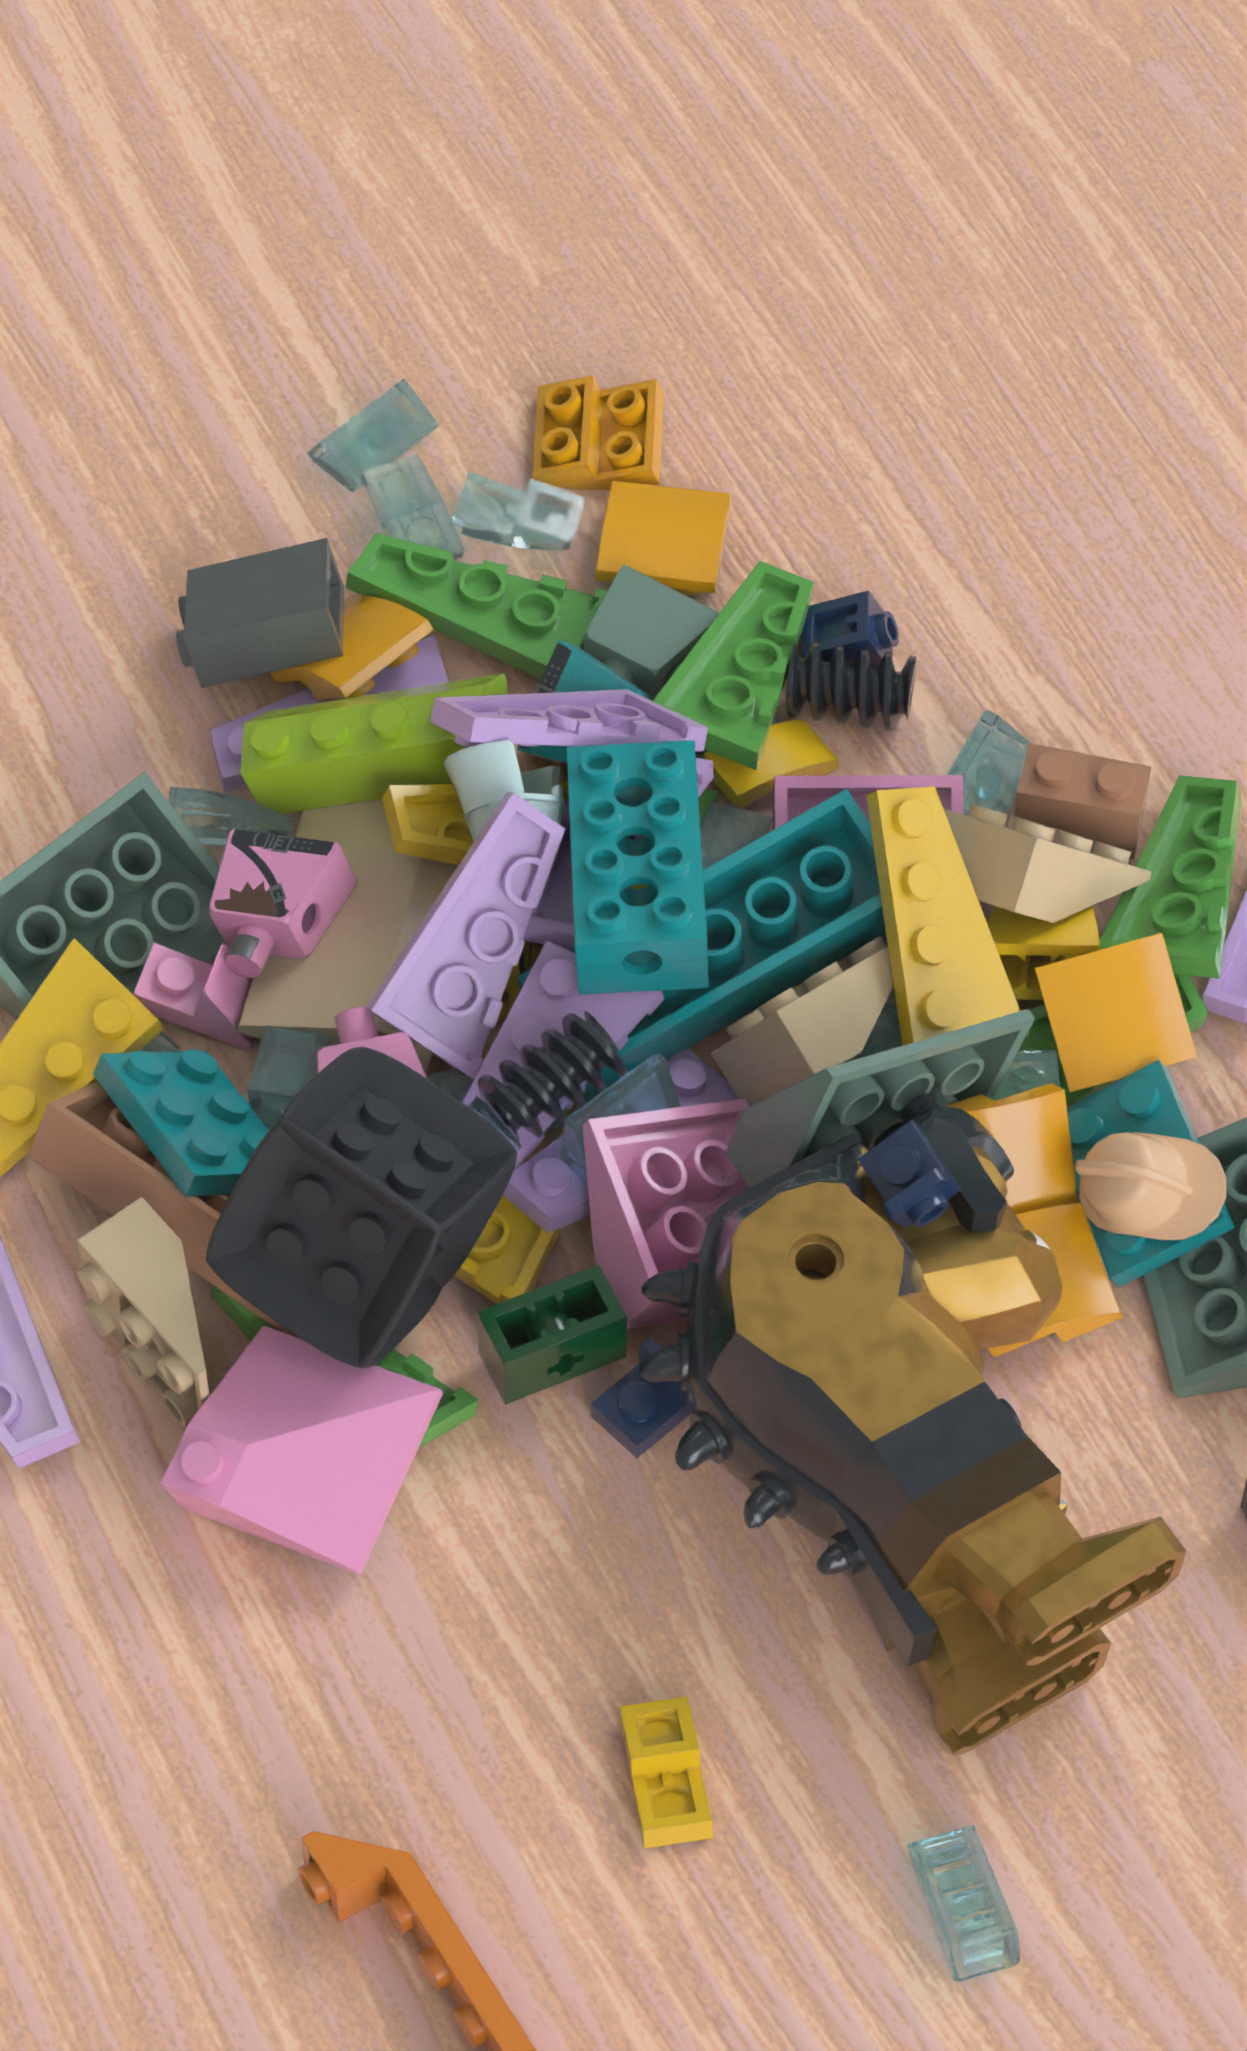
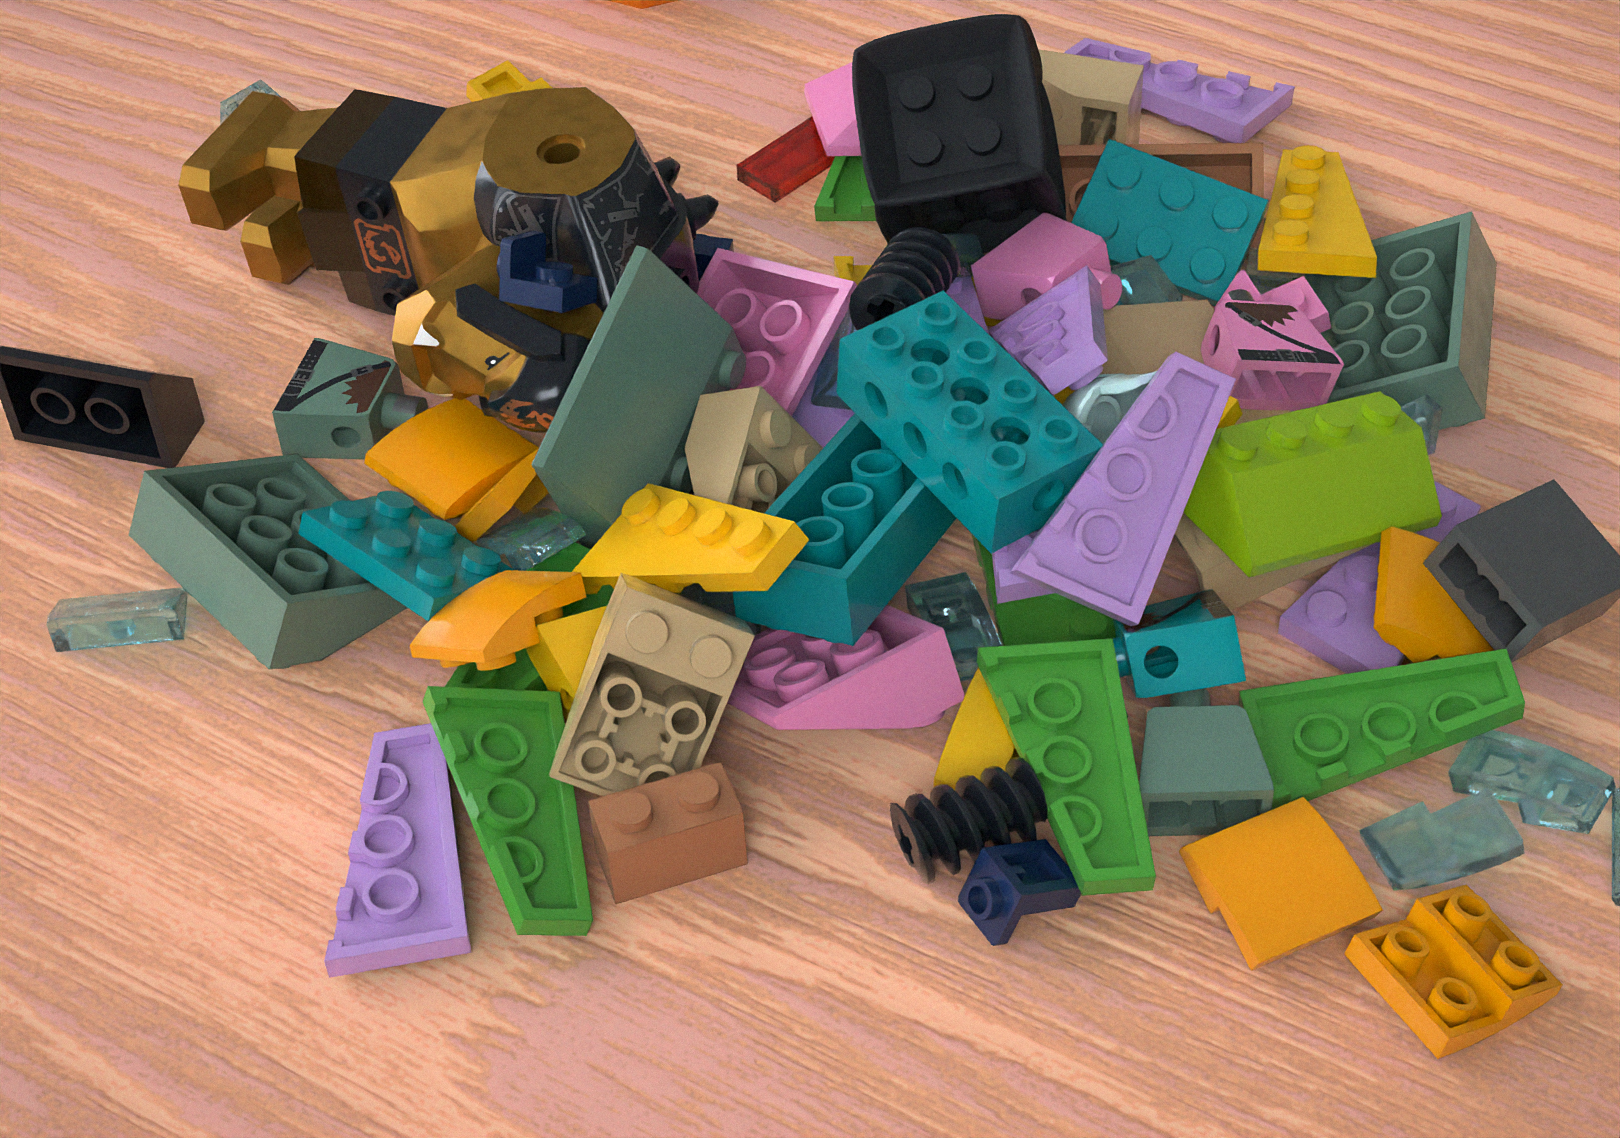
camera: 150 degrees right, 10 degrees down
(448, 1497) = (785, 162): none -> clear red tile
(552, 1334) = (794, 224): dark green brick -> none
(991, 764) = (782, 830): clear light blue slope -> none
(1103, 1400) = (341, 403): none -> sand green torso
(1151, 1186) = (392, 495): light nougat piece -> none

